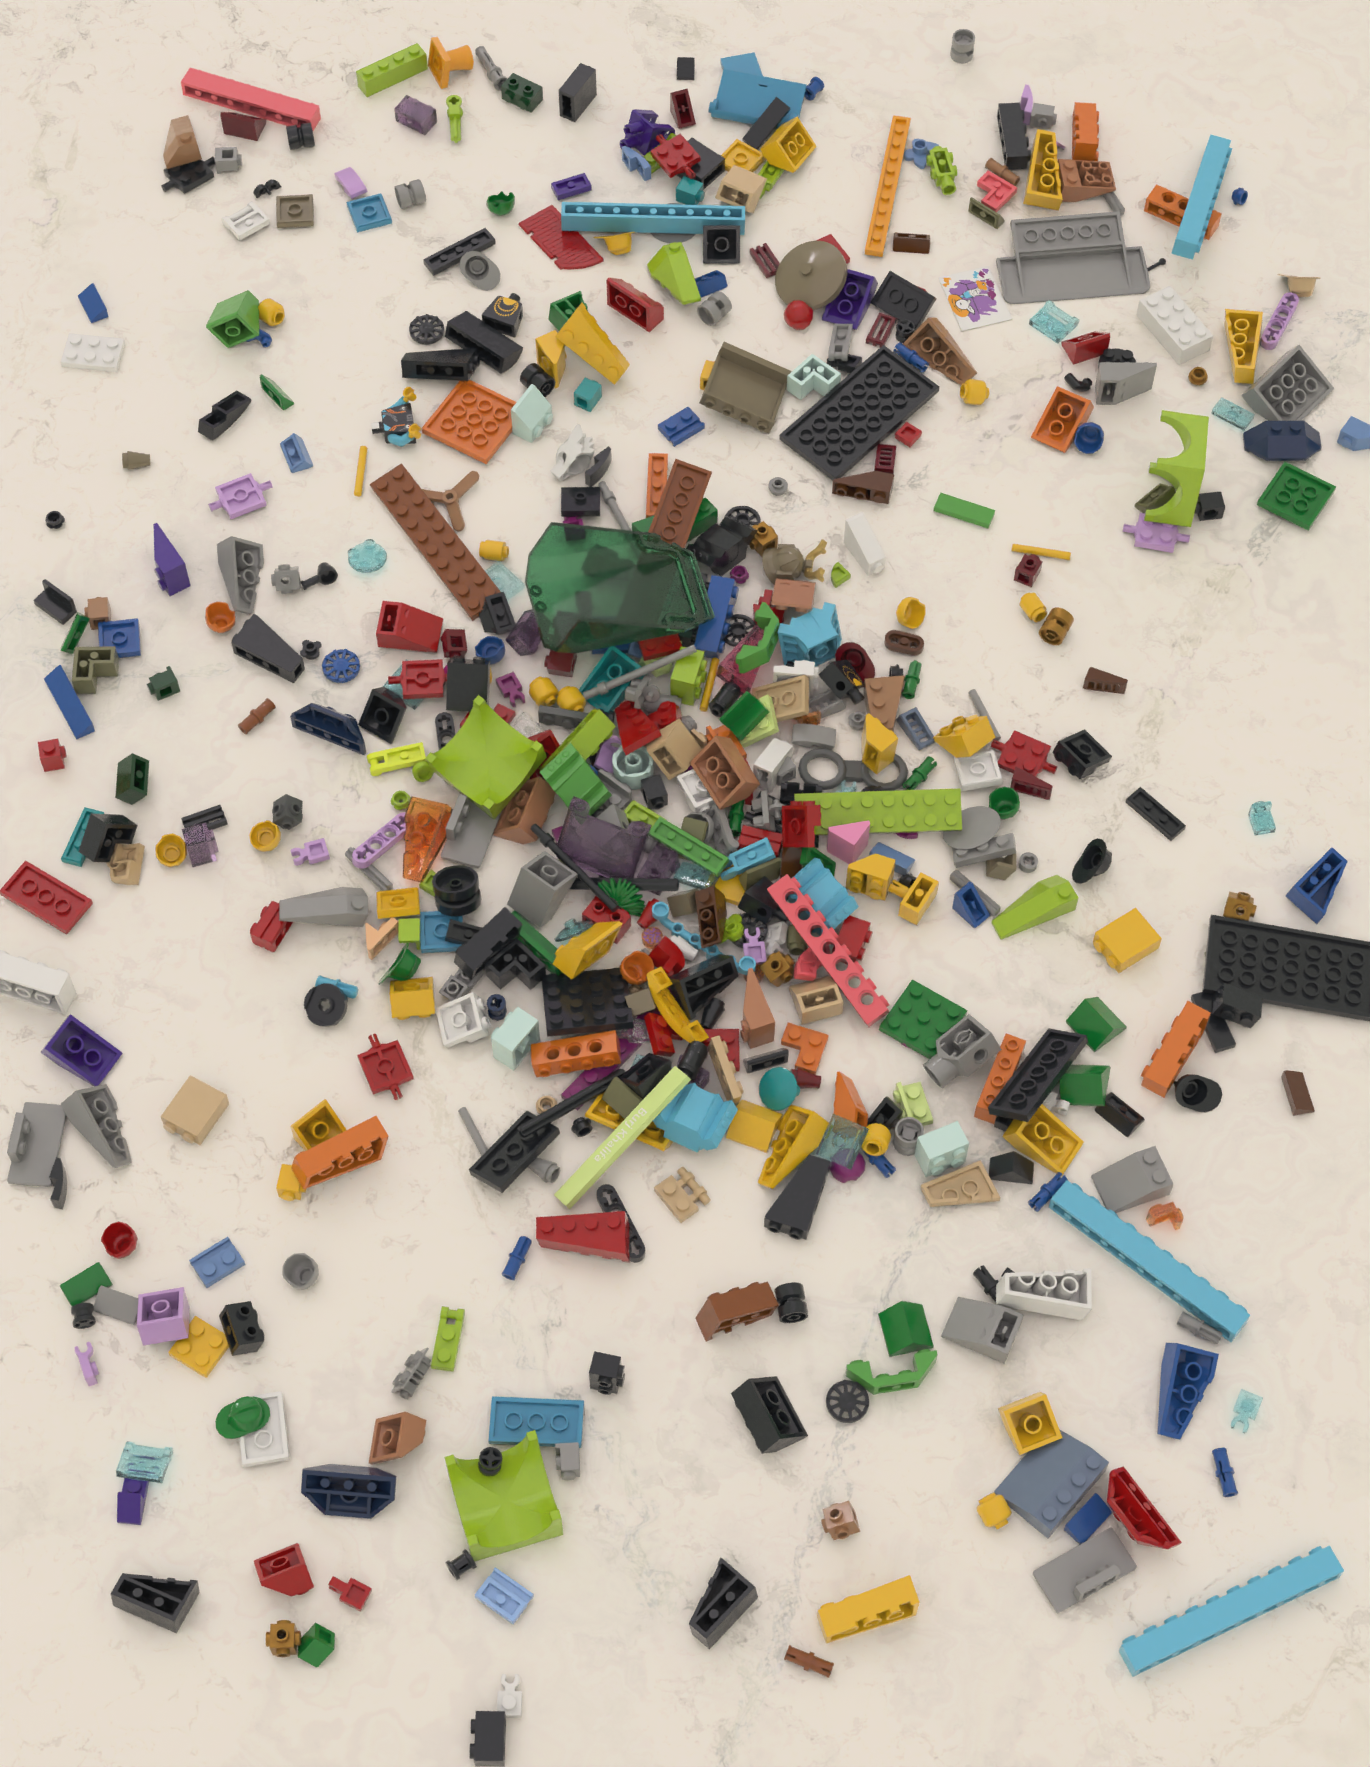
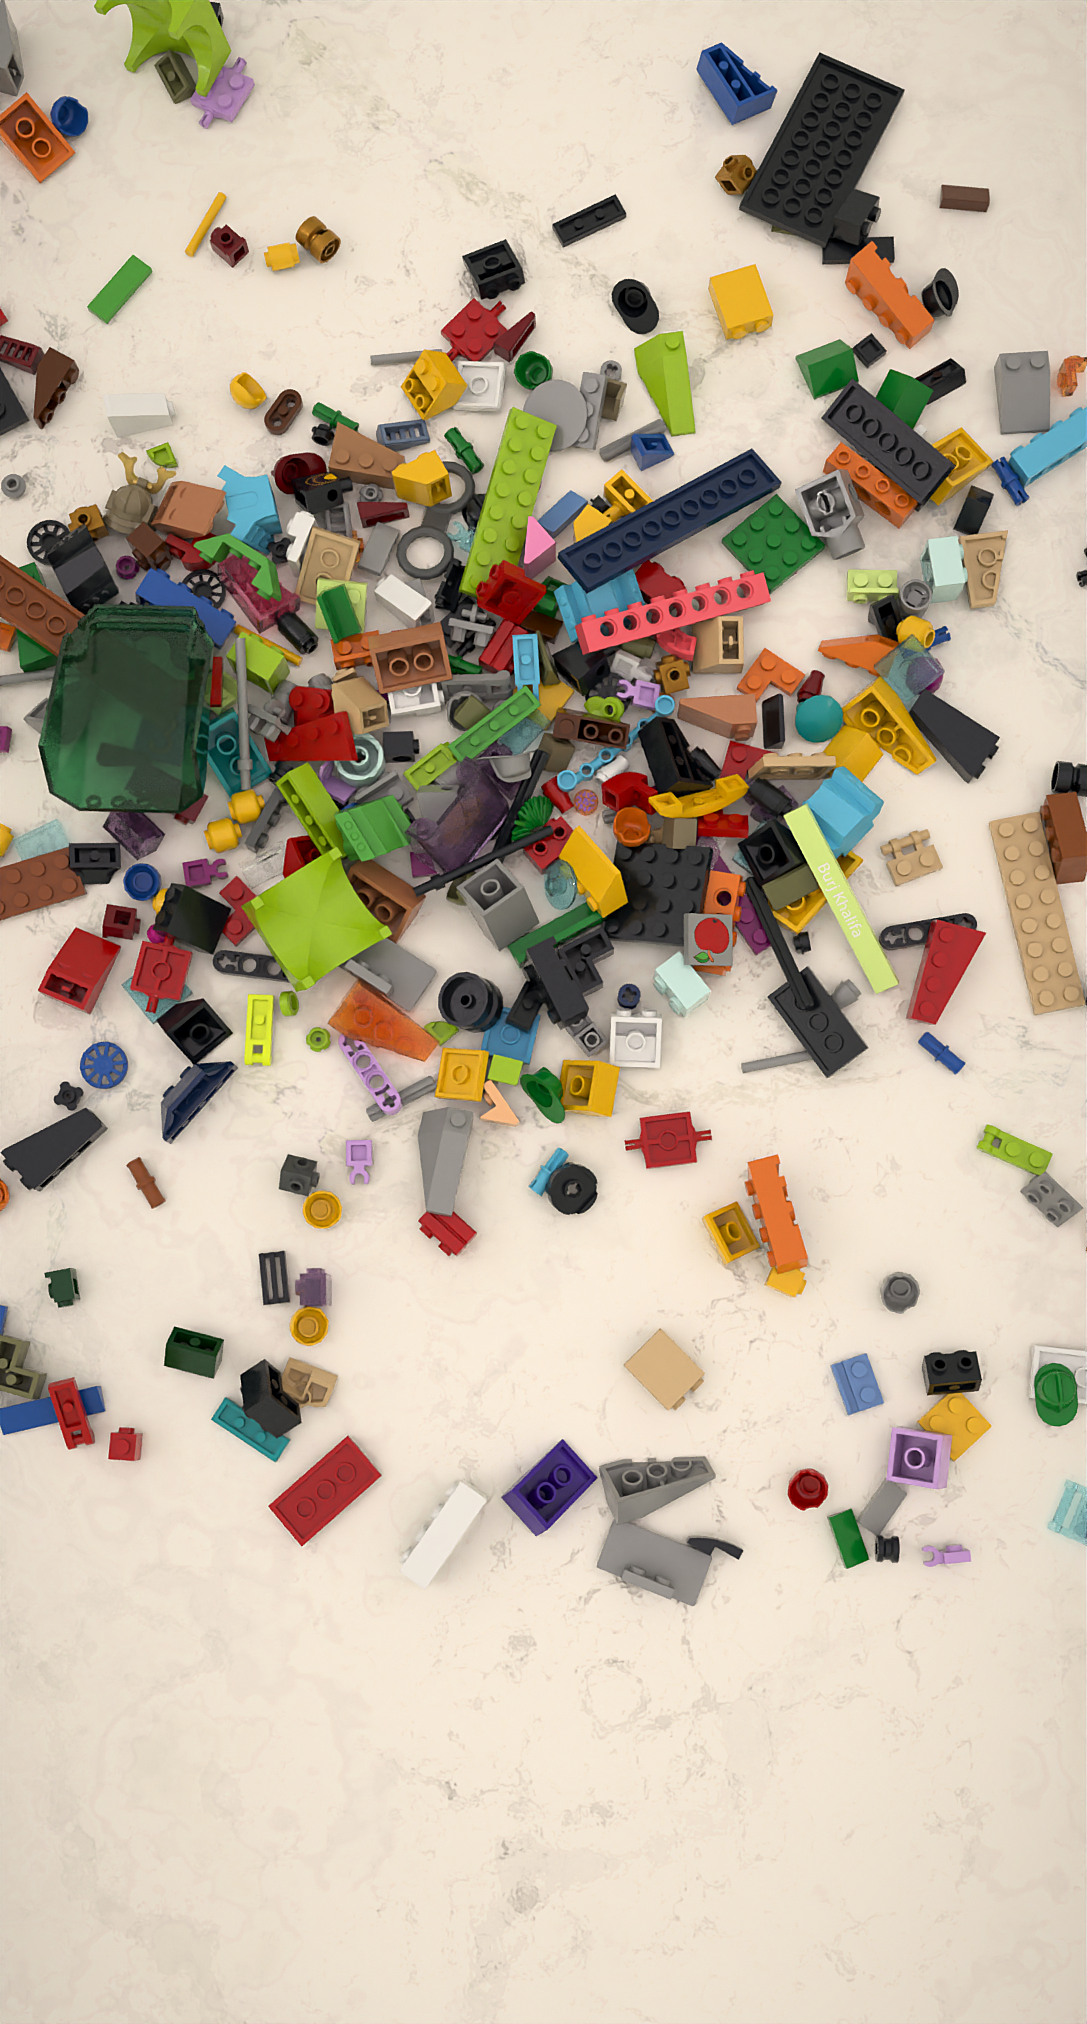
camera: 70 degrees left, 20 degrees up
(67, 712) = (71, 1413): none -> red plate
(545, 1100) = (765, 966): tan plate -> none
(553, 1039) = (708, 939): none -> tile
(654, 863) = (512, 767): none -> light grey piece
(660, 1306) = (1036, 913): none -> tan plate
(754, 580) = (149, 548): none -> reddish brown brick
(841, 723) = (381, 512): none -> dark red slope
(906, 926) = (668, 520): none -> dark blue plate
(1104, 681) = (404, 216): reddish brown slope -> none
(1125, 1052) = (869, 350): none -> black tile
(1261, 818) = (630, 115): clear light blue bracket -> none

